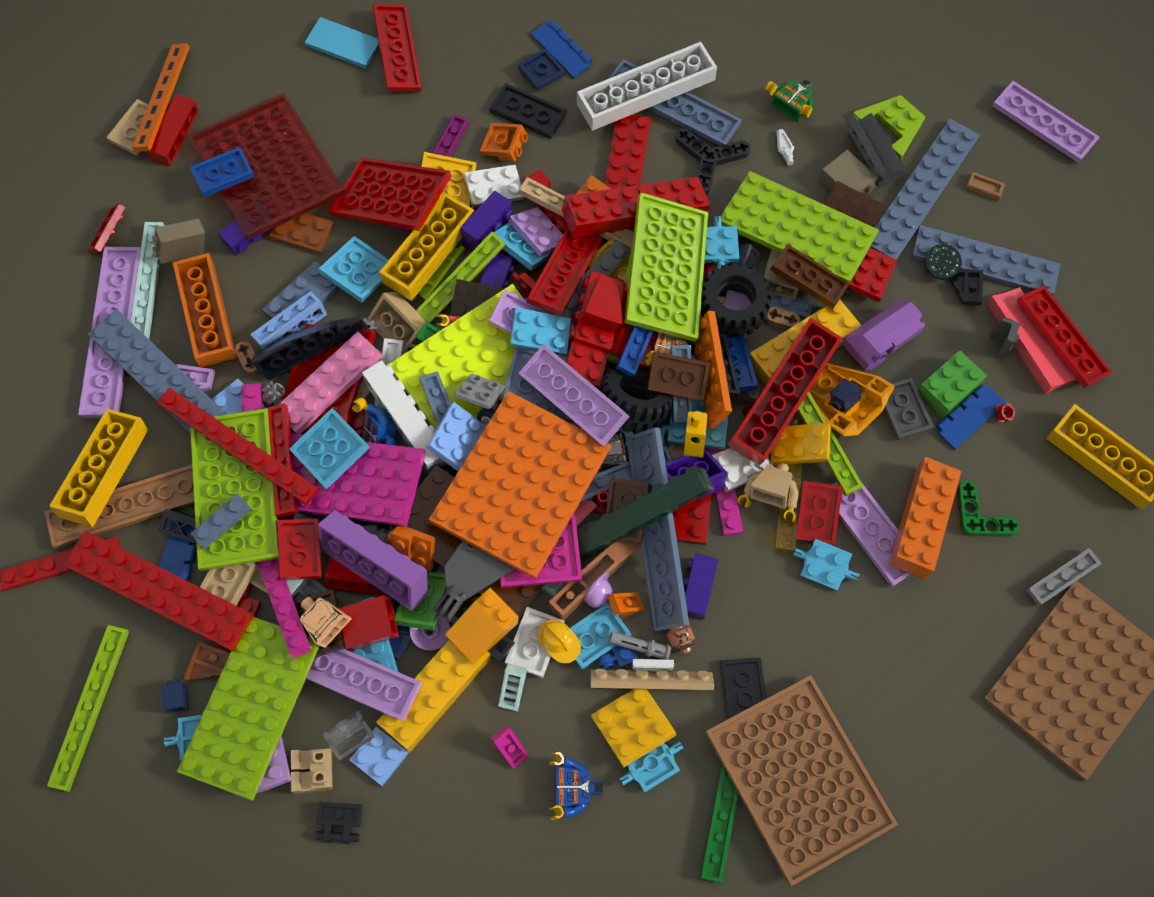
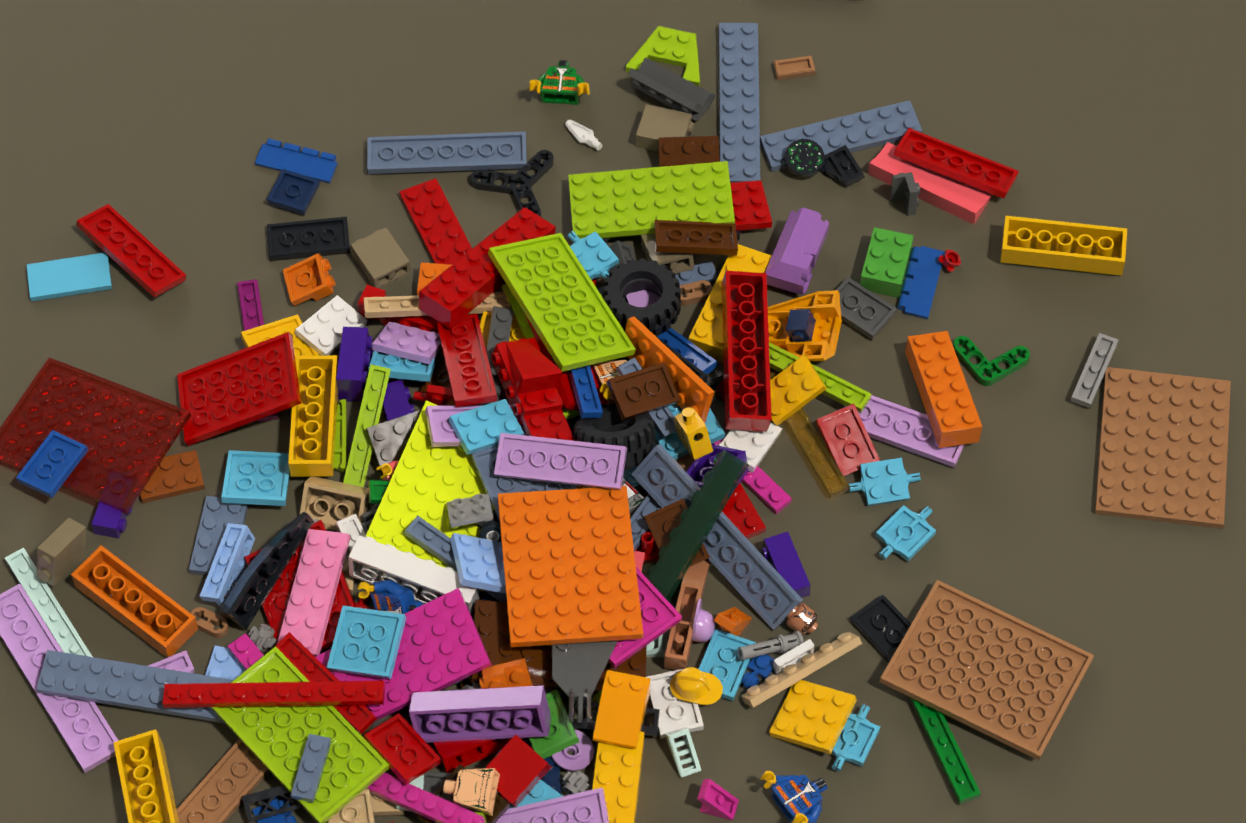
camera: 30 degrees left, 10 degrees down
(412, 660) = (575, 782): none -> light grey gear
(567, 155) = (380, 258): none -> dark tan brick
(646, 85) = (413, 150): white brick -> none
(772, 487) = (793, 441): tan torso -> none
(814, 618) = (905, 533): none -> medium azure plate

